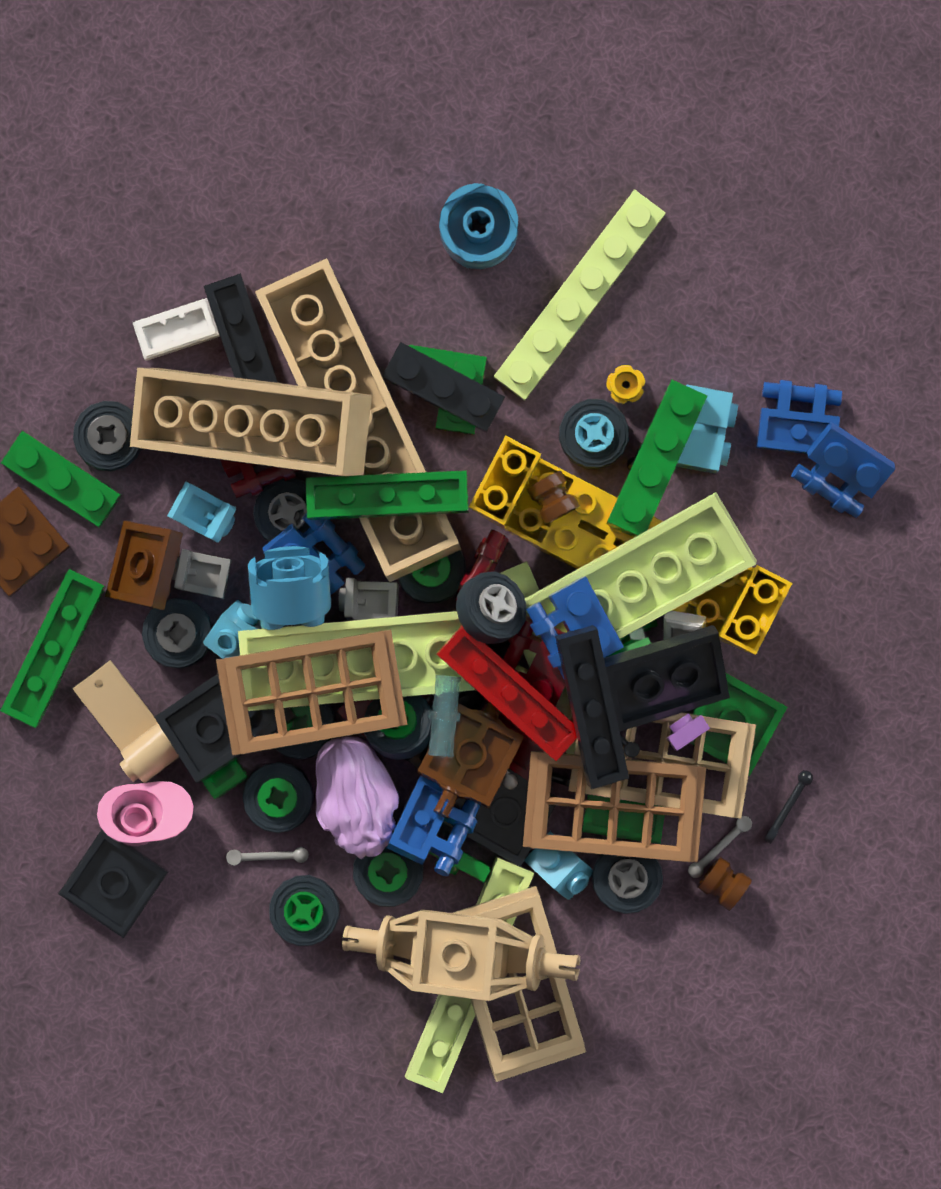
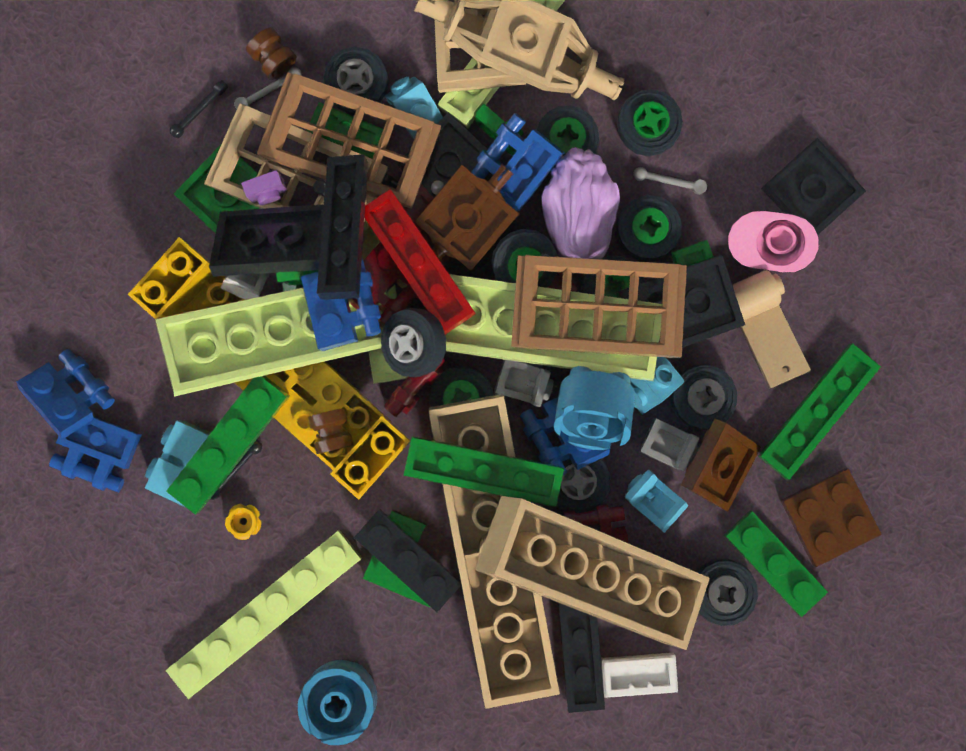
camera: 175 degrees left, 0 degrees up
(444, 715) = (481, 255): clear light blue pin -> none
(592, 416) = (273, 491): black wheel -> none

